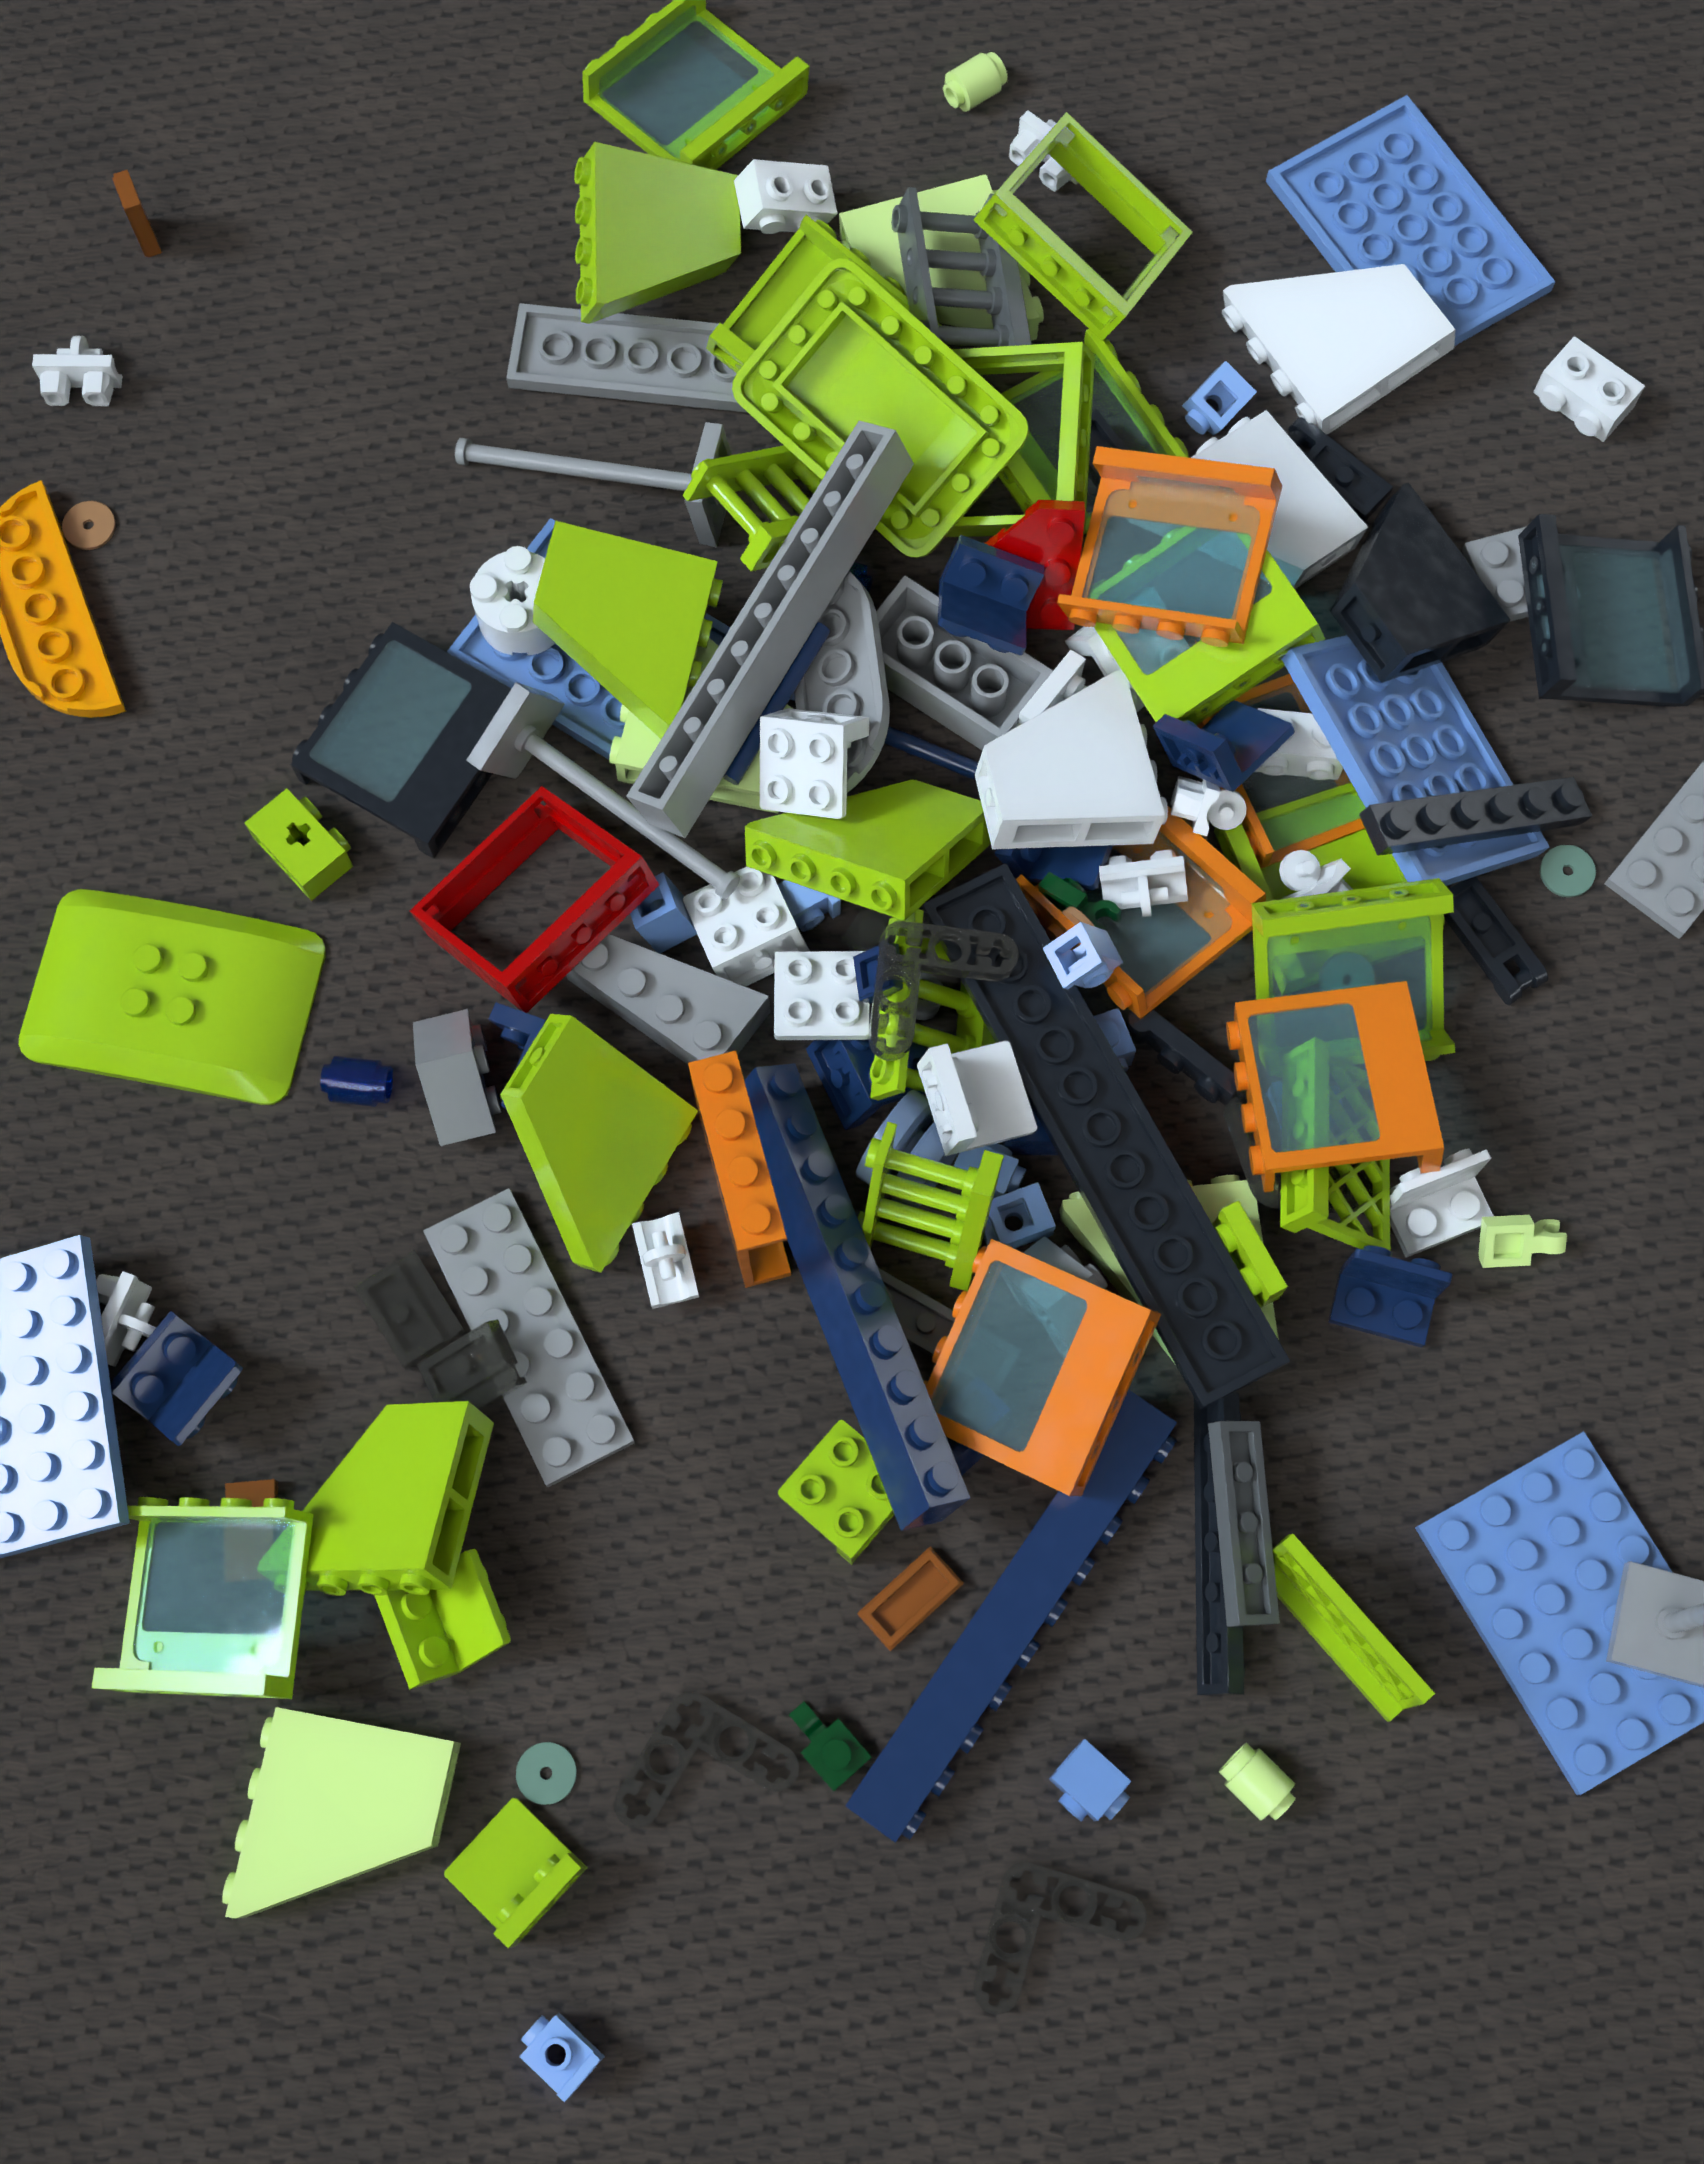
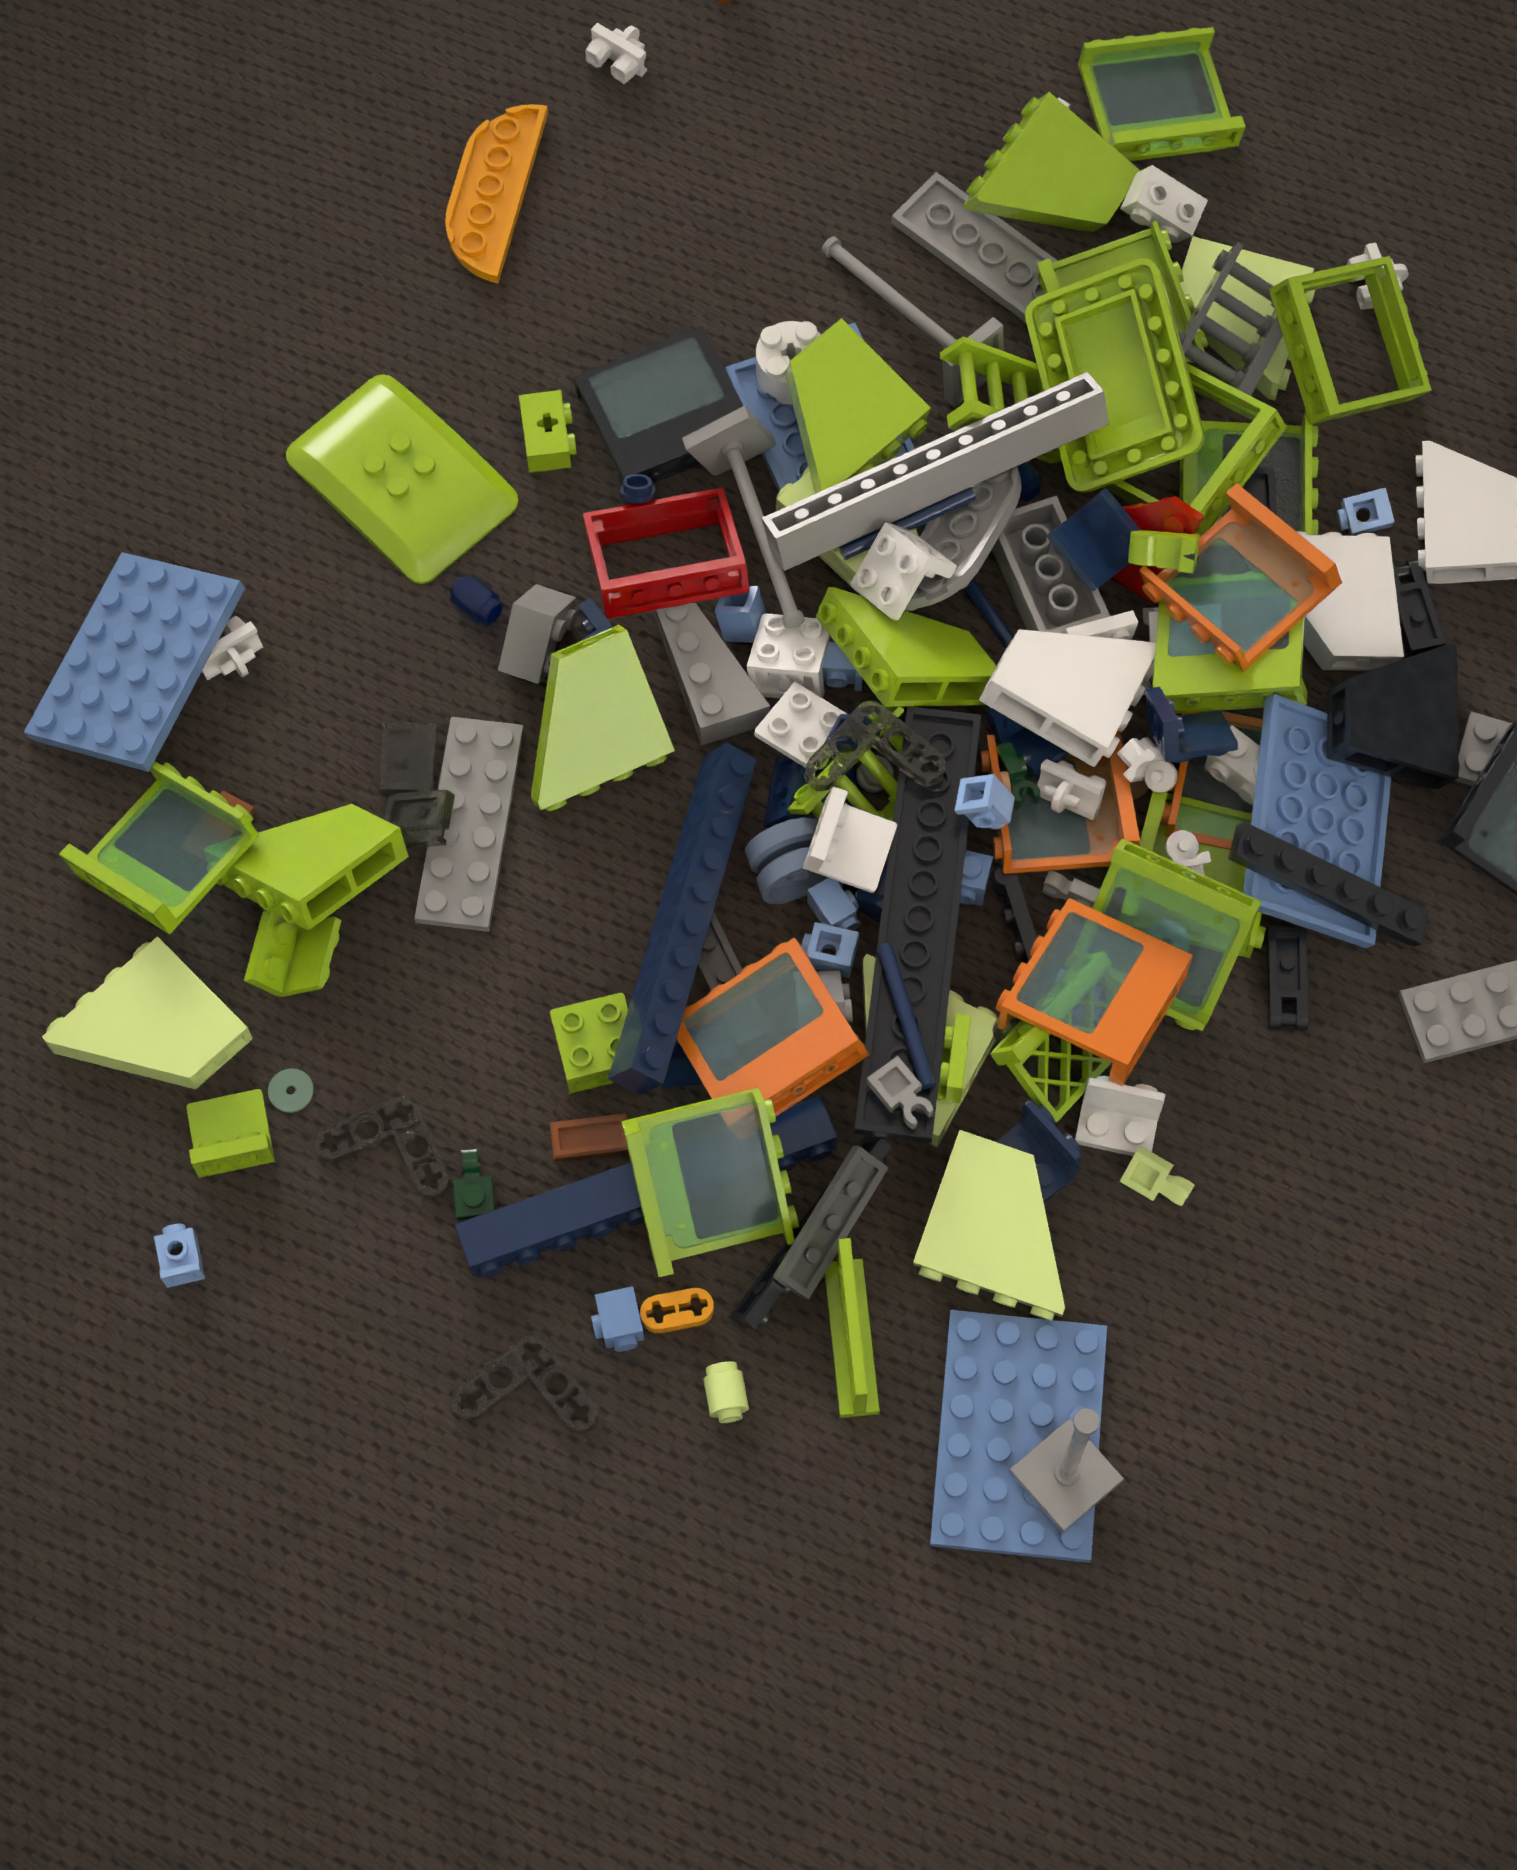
camera: 35 degrees right, 5 degrees down
(85, 512) = (562, 162): medium nougat wheel -> none
(176, 1379) = (236, 705): dark blue bracket -> none
(450, 846) = (637, 489): none -> dark blue plate
(665, 1260) = (586, 830): white hips -> none
(740, 1168) = (663, 799): orange panel -> none
(970, 1207) = (796, 905): lime fence -> none
(975, 81) = (1358, 203): yellowish green brick -> none
(1070, 564) = (1164, 550): none -> lime leg
(1083, 1561) = (709, 1176): none -> clear light blue panel
(1149, 1735) = (677, 1320): none -> light orange beam
(1169, 1245) = (906, 1015): none -> dark blue bar
(1219, 1333) = (897, 1087): none -> light grey plate
(1222, 990) = (1060, 887): none -> light grey plate
(1402, 1410) = (992, 1228): none -> yellowish green slope
(1567, 856) = (1378, 958): sand green wheel -> none

